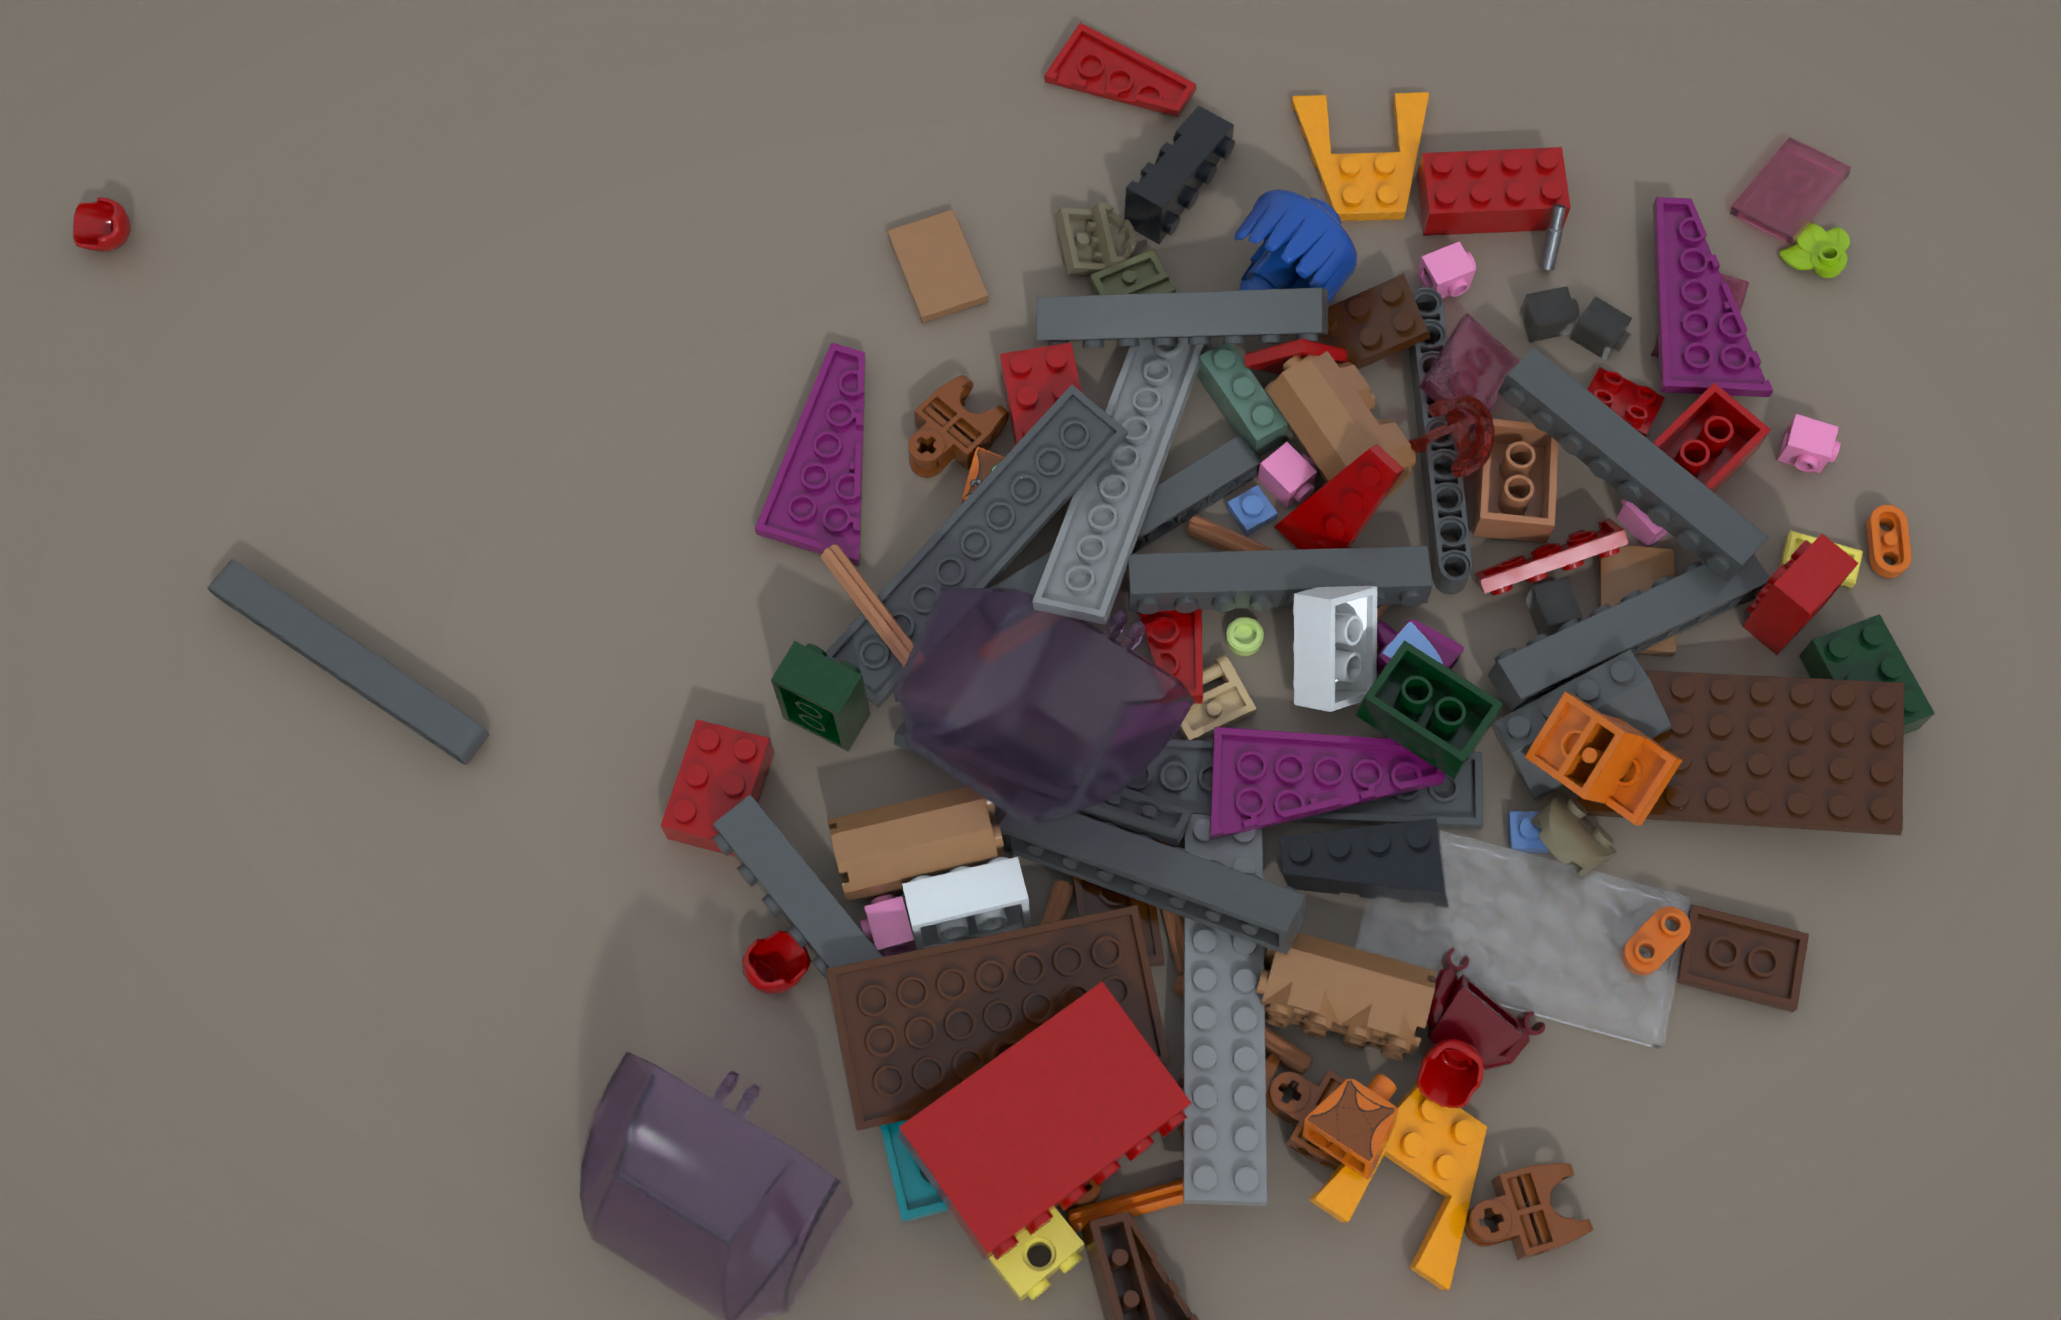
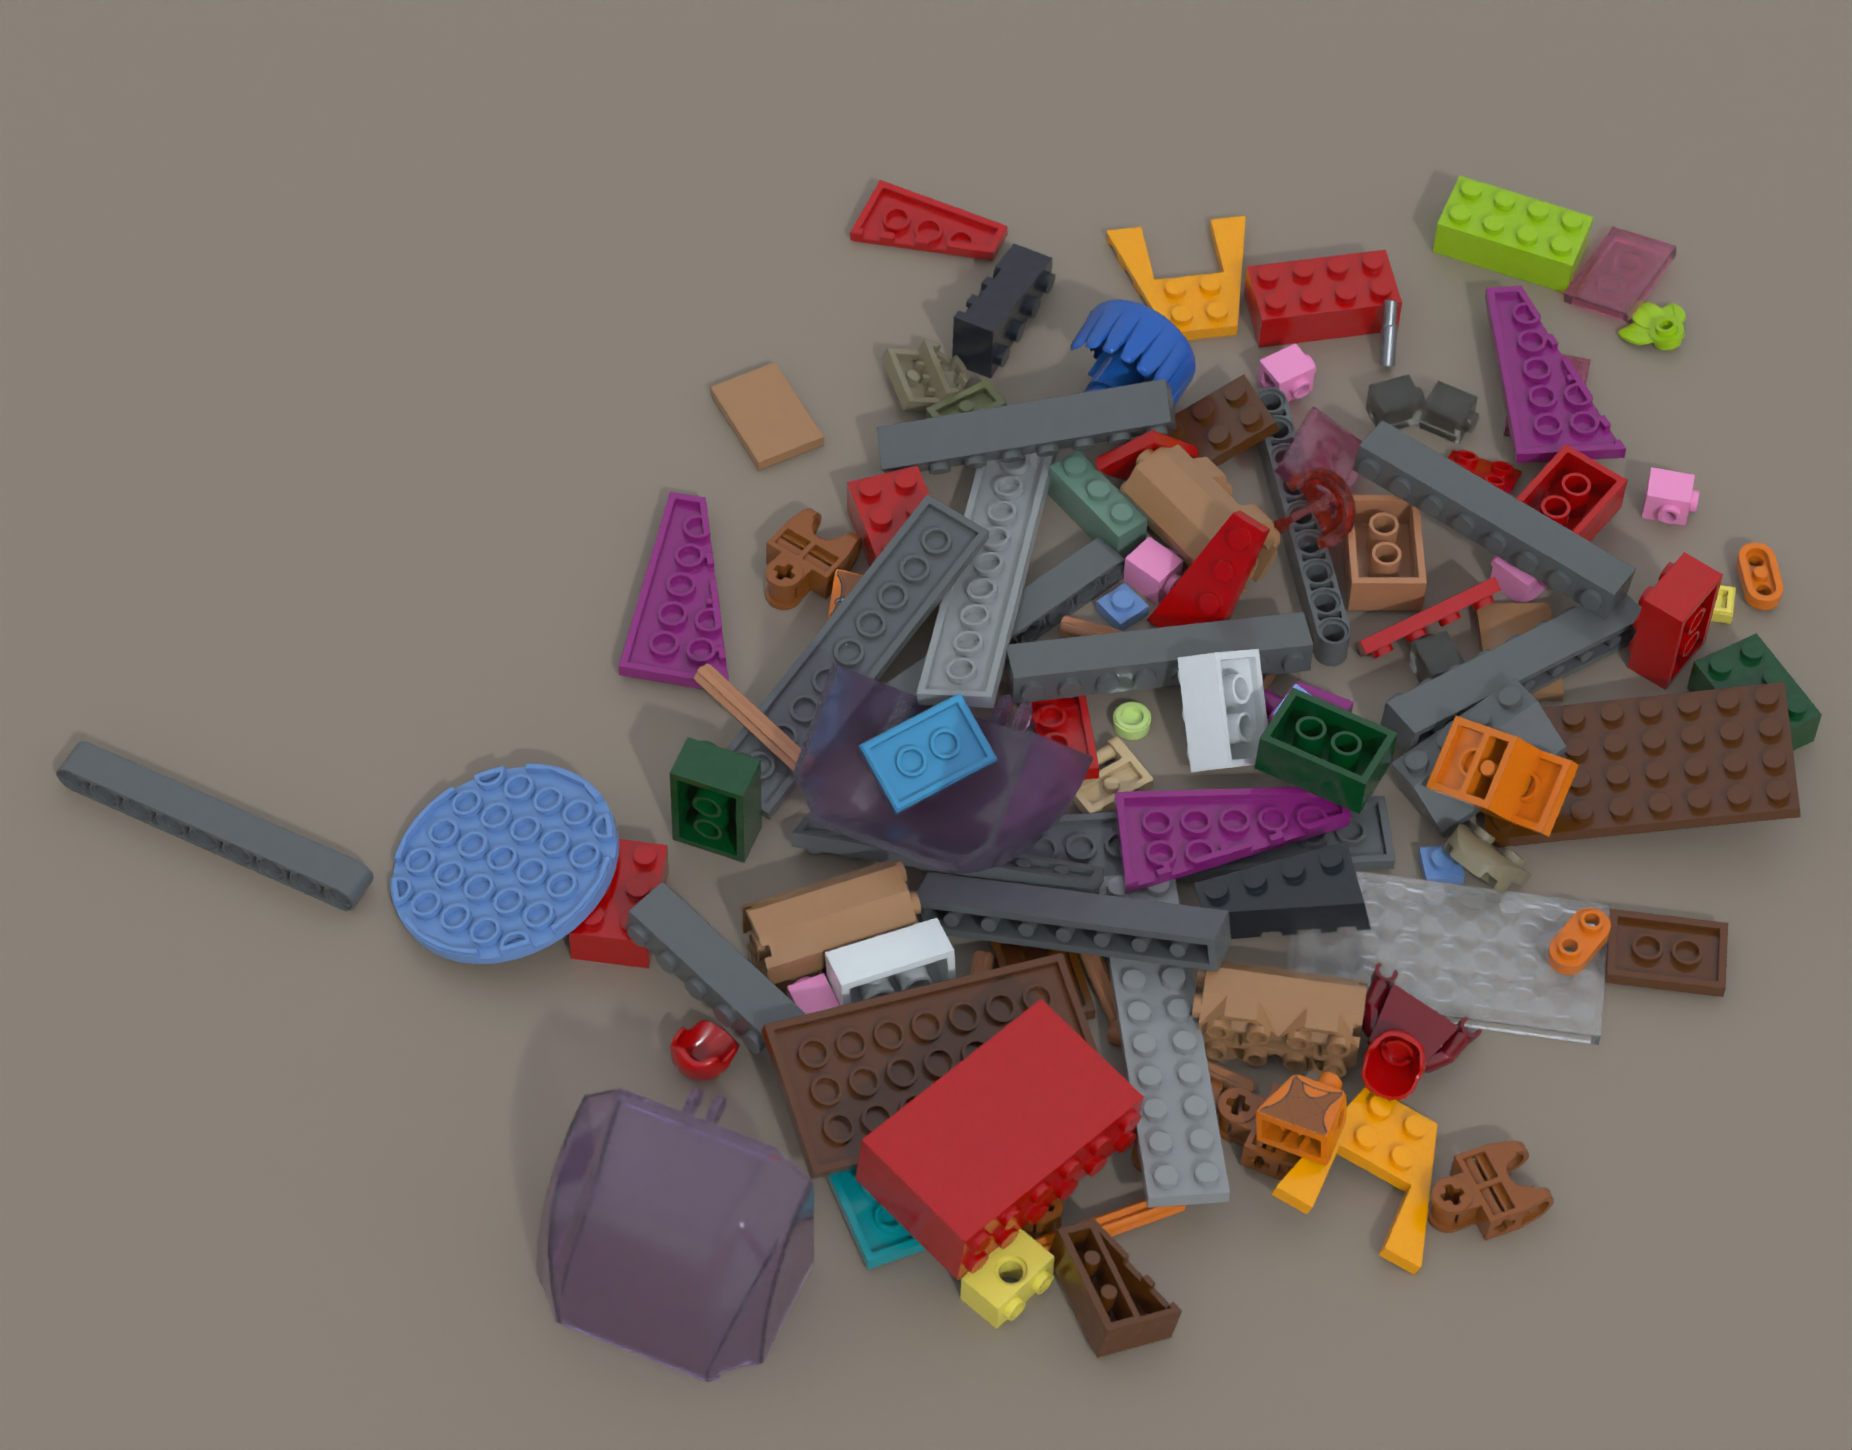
camera: 10 degrees left, 15 degrees down
(612, 739) = (505, 864): none -> medium blue tile
(1035, 668) = (927, 753): none -> dark azure tile
(1689, 138) = (1512, 234): none -> lime brick

